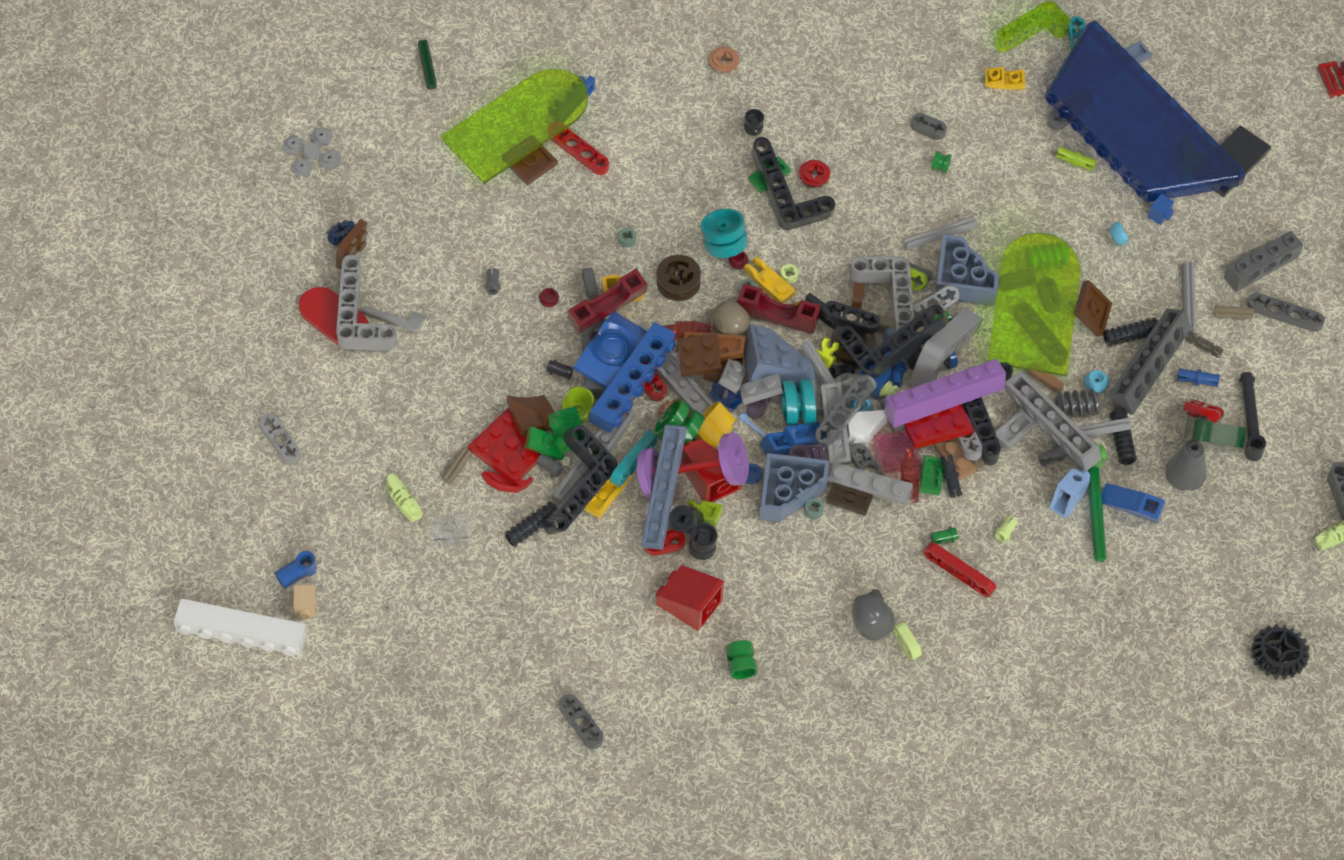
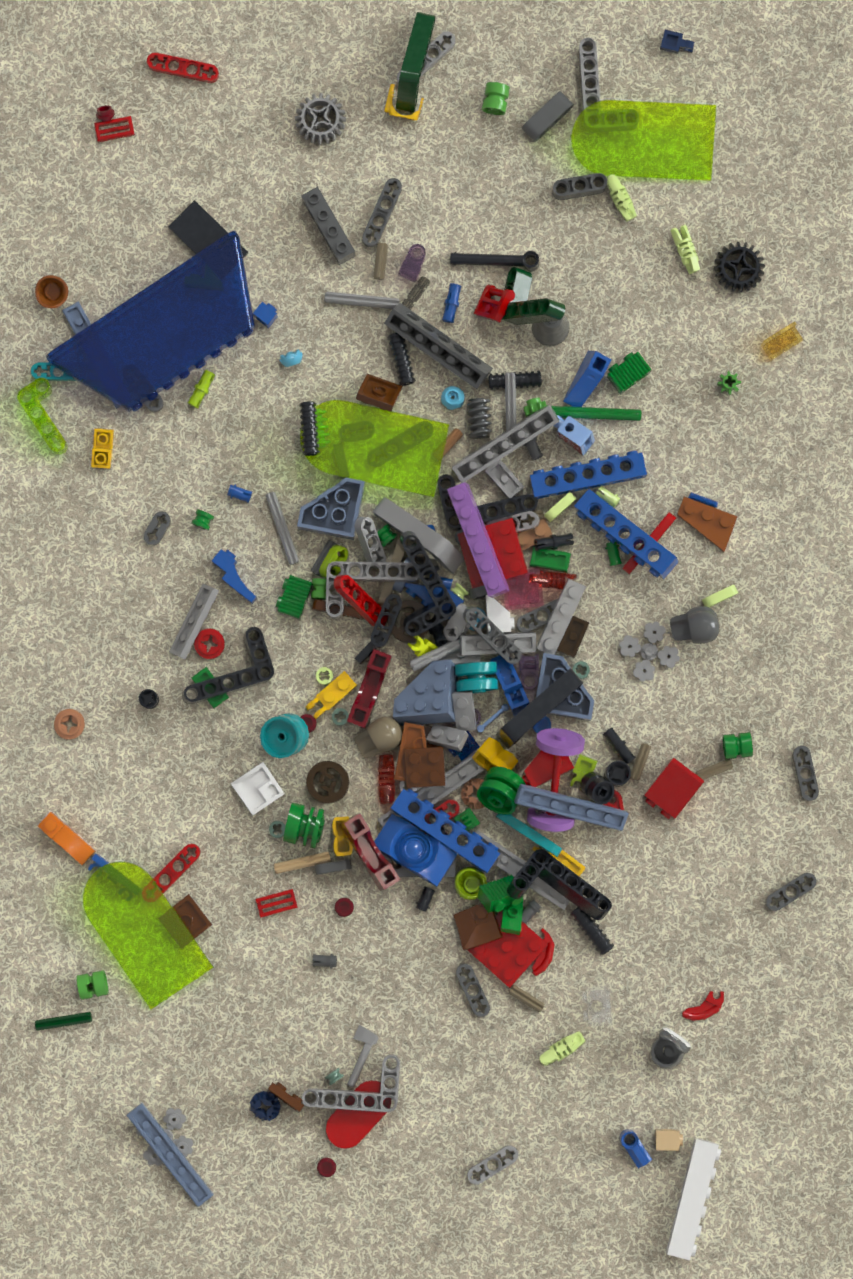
camera: 80 degrees left, 25 degrees up
(279, 289) = (326, 1167): none -> dark red plate
(294, 153) = (170, 1154): none -> sand blue tile
(373, 292) = (334, 1076): none -> sand green bush
(405, 596) = (674, 1049): none -> dark grey piece
(449, 641) = (708, 1008): none -> red piece
(463, 83) = (99, 984): none -> bright green wheel
(468, 408) = (473, 1005): none -> dark grey beam
(547, 226) = (261, 907): none -> red tile
(593, 258) = (302, 862): none -> tan axle
(611, 57) = (66, 838): none -> orange slope
(631, 250) = (303, 825): none -> green wheel
(645, 406) = (468, 819): none -> green tile
(668, 218) = (257, 788): none -> white plate
(698, 732) = (814, 786): none -> dark grey beam
(713, 641) = (715, 769): none -> dark tan axle
(717, 568) = (640, 761): none -> dark tan axle
(733, 546) = (619, 745): none -> black pin
(771, 452) = (539, 708): none -> black beam
(827, 156) = (194, 621): none -> light grey plate
(839, 574) = (649, 651): none -> light grey plant
(868, 242) = (294, 597): none -> green brick
(871, 292) = (362, 597): none -> red beam
(886, 188) = (226, 561): none -> blue slope
(965, 539) = (591, 502): none -> blue brick
(973, 190) = (239, 493): none -> blue pin
(989, 630) = (709, 521): none -> dark orange wing
(990, 482) = (558, 508): none -> yellowish green beam
(1013, 624) = (707, 501): none -> blue piece
(1038, 554) = (633, 458): none -> blue brick
(1046, 236) = (309, 428): none -> black piece
(1146, 544) = (629, 372): none -> green brick
(1147, 644) = (733, 379): none -> bright green gear
(1158, 26) = (51, 291): none -> dark orange helmet
(1203, 697) = (781, 341): none -> clear yellow panel
(1235, 338) = (412, 266): none -> clear purple piece
(1290, 599) = (686, 249): none -> yellowish green hinge

